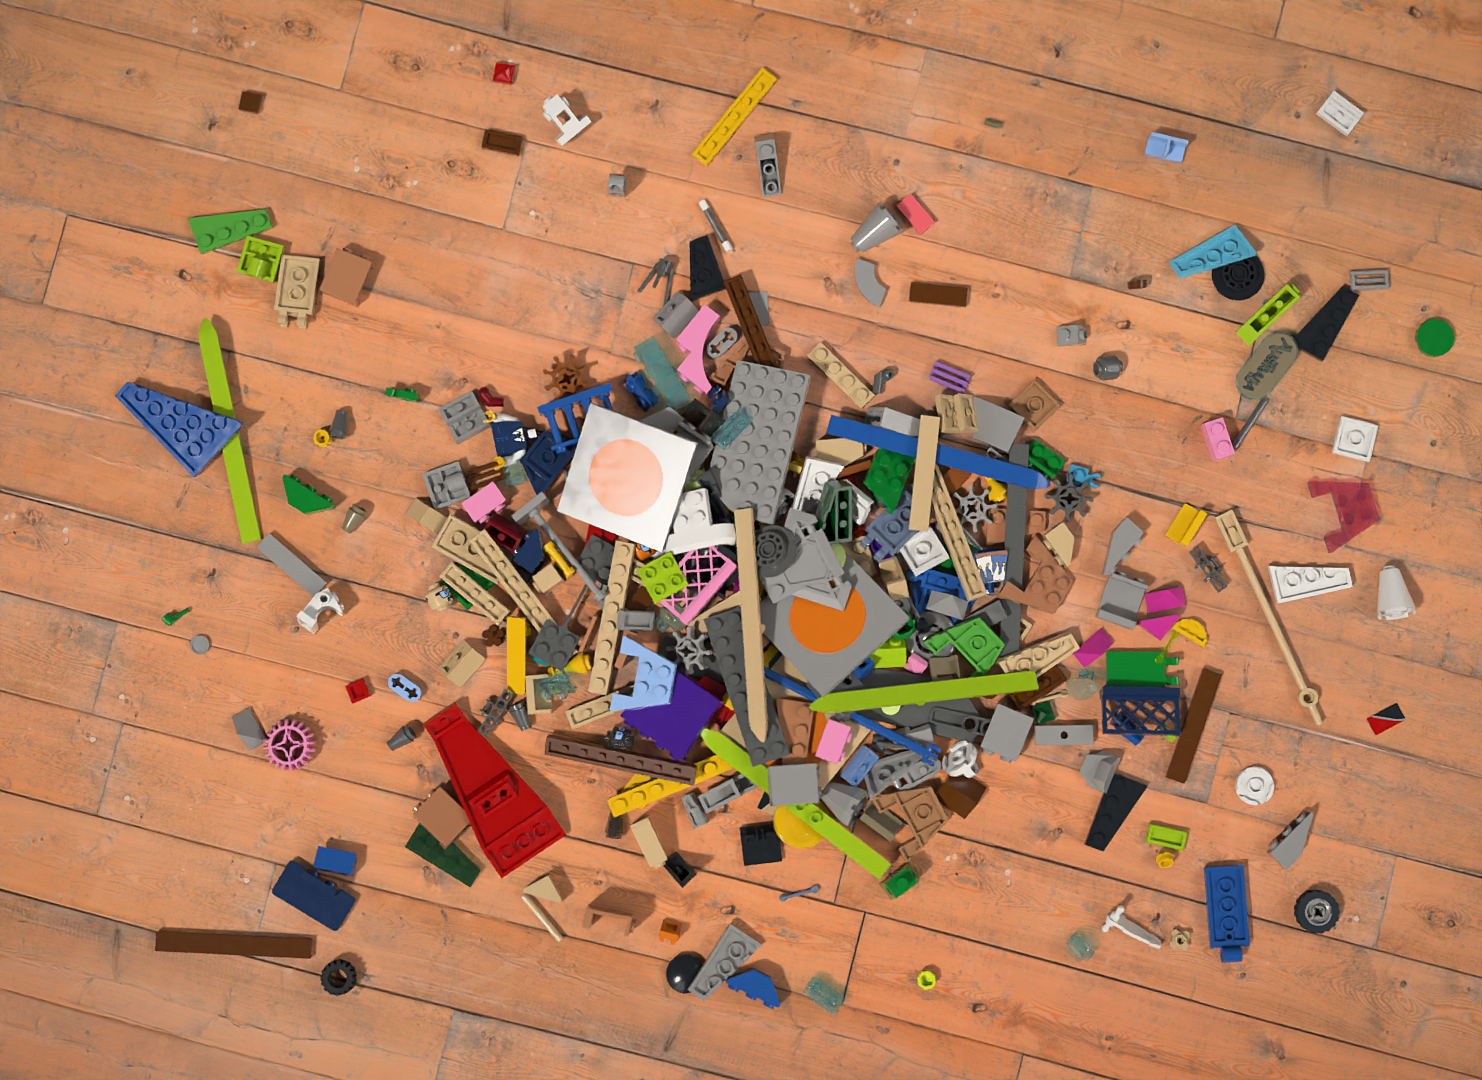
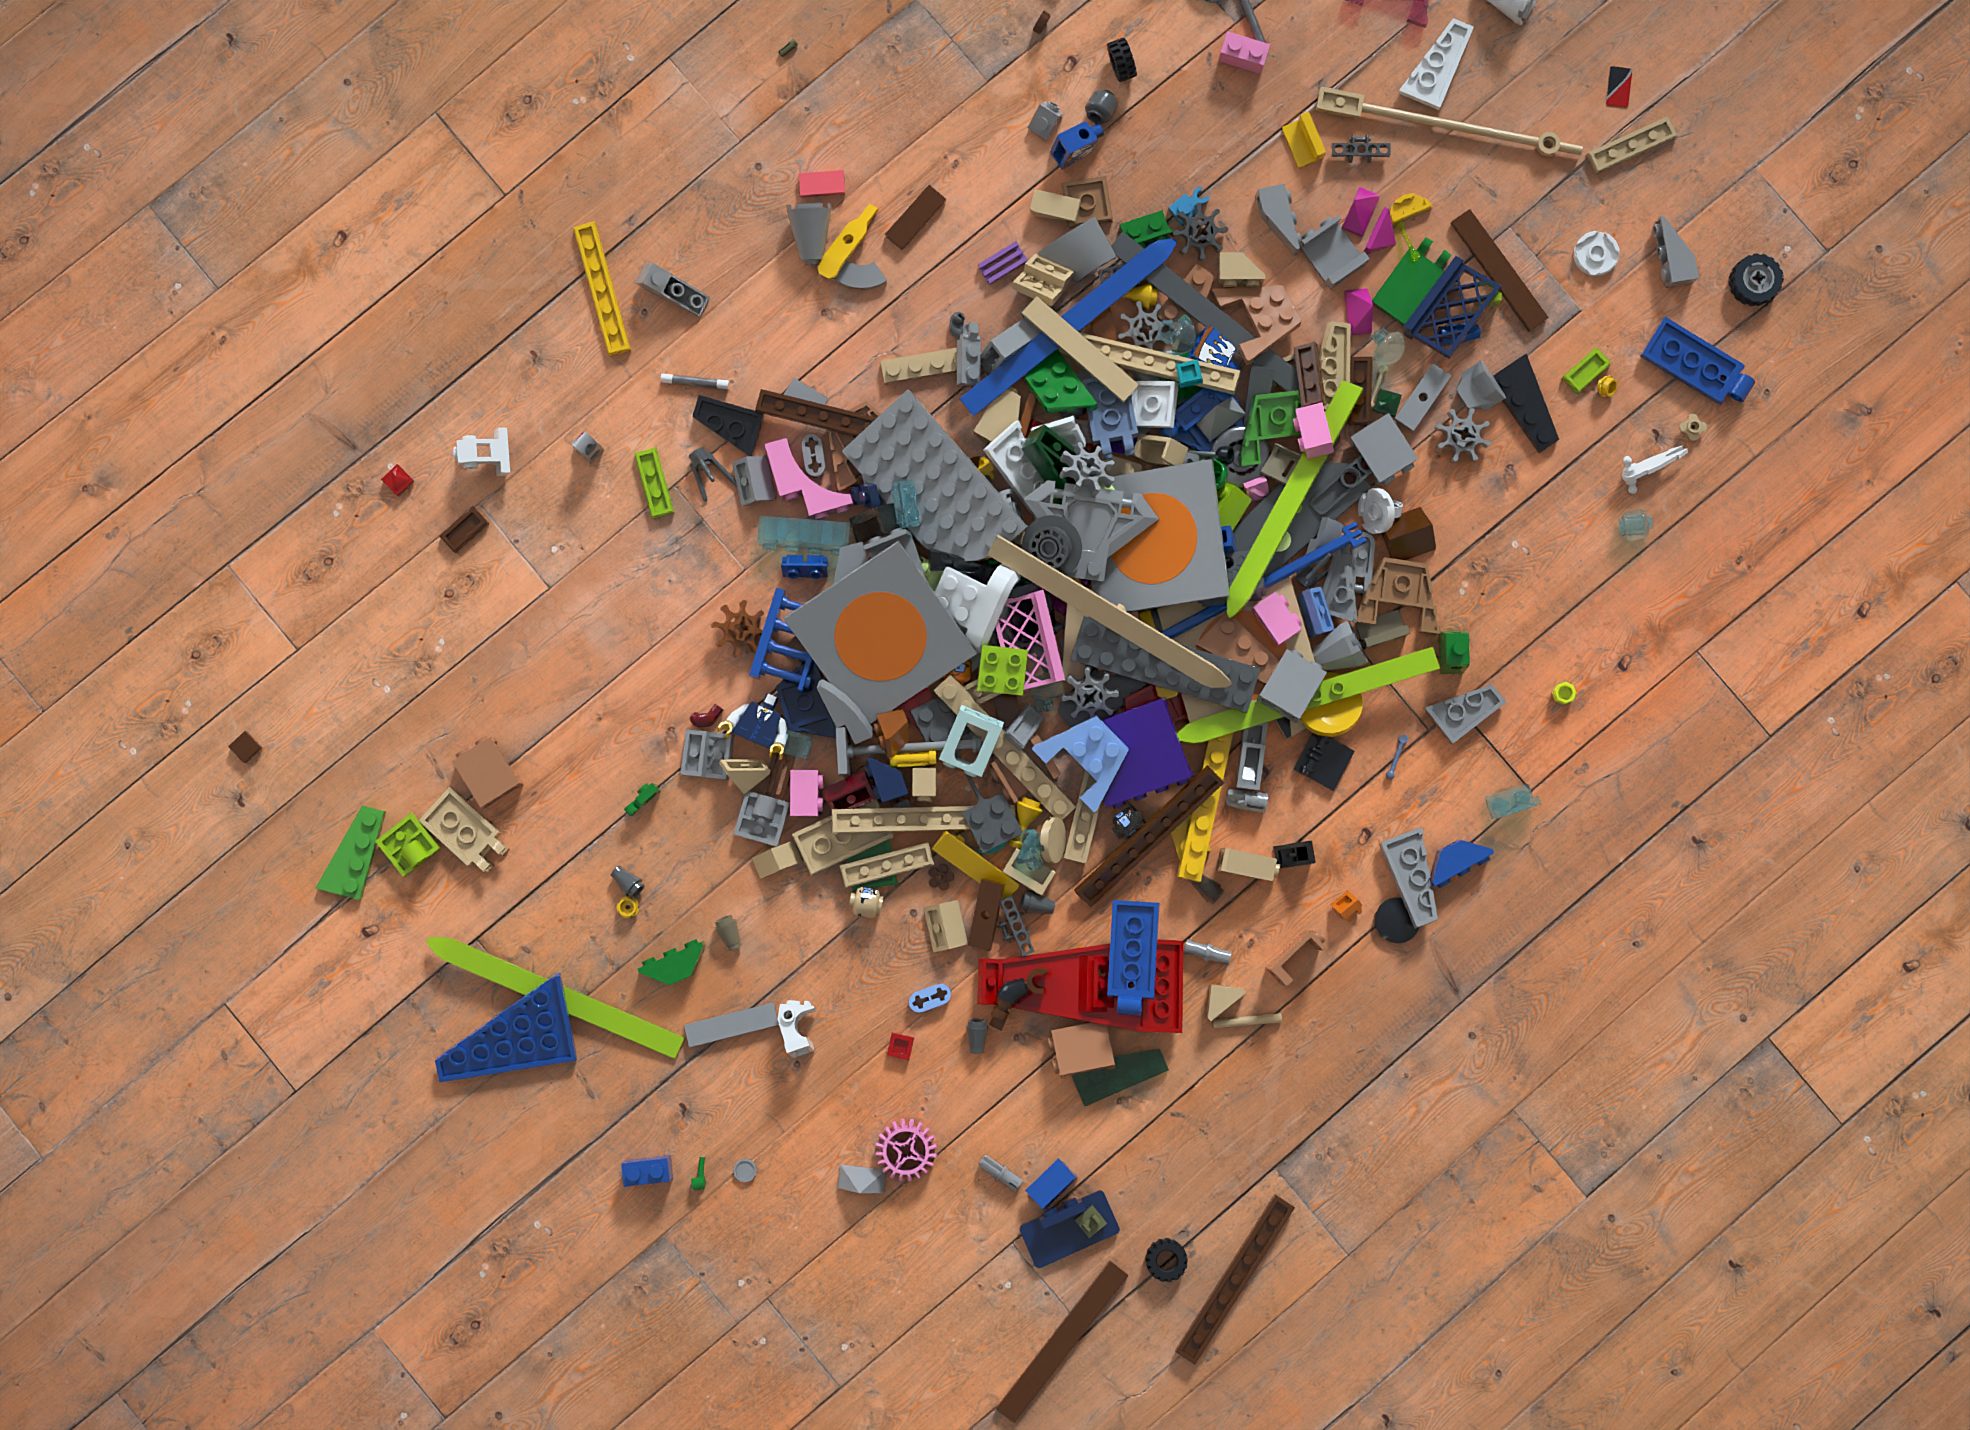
camera: 55 degrees left, 0 degrees up
(152, 578) = (647, 1170): none -> blue brick
(319, 820) = (1000, 1172): none -> light grey axle
(328, 906) = (1090, 1221): none -> olive tile
(358, 1034) = (1234, 1279): none -> reddish brown plate
(447, 741) = (1011, 992): none -> piece
(469, 451) = (745, 772): none -> tan slope
(479, 689) = (984, 927): none -> reddish brown tile
(529, 805) = (1133, 954): none -> blue hinge
(557, 490) = (845, 712): none -> light grey slope
(568, 532) = (892, 731): none -> dark orange slope
(570, 857) = (1207, 952): none -> light grey pin
(571, 695) = (1053, 839): none -> tan tile
(616, 585) = (978, 719): none -> light aqua panel
(625, 248) = (654, 483): none -> lime tile
(841, 537) = (1087, 469): none -> light grey gear
(864, 919) = (1464, 712): none -> light grey wing
(866, 400) = (969, 356): none -> light grey hinge
(875, 260) = (839, 251): none -> yellow piece
(959, 560) = (1189, 373): none -> teal tile
(982, 675) = (1314, 431): none -> bright pink brick
(985, 538) = (1184, 335): none -> clear light blue piece
(1014, 385) = (1054, 206): none -> tan slope
(1020, 645) = (1309, 374): none -> reddish brown tile
(1066, 779) = (1471, 432): none -> light grey gear
(1068, 368) = (1075, 143): none -> blue torso
(1150, 358) = (1121, 59): none -> black tyre
(1350, 757) = (1631, 145): none -> tan tile

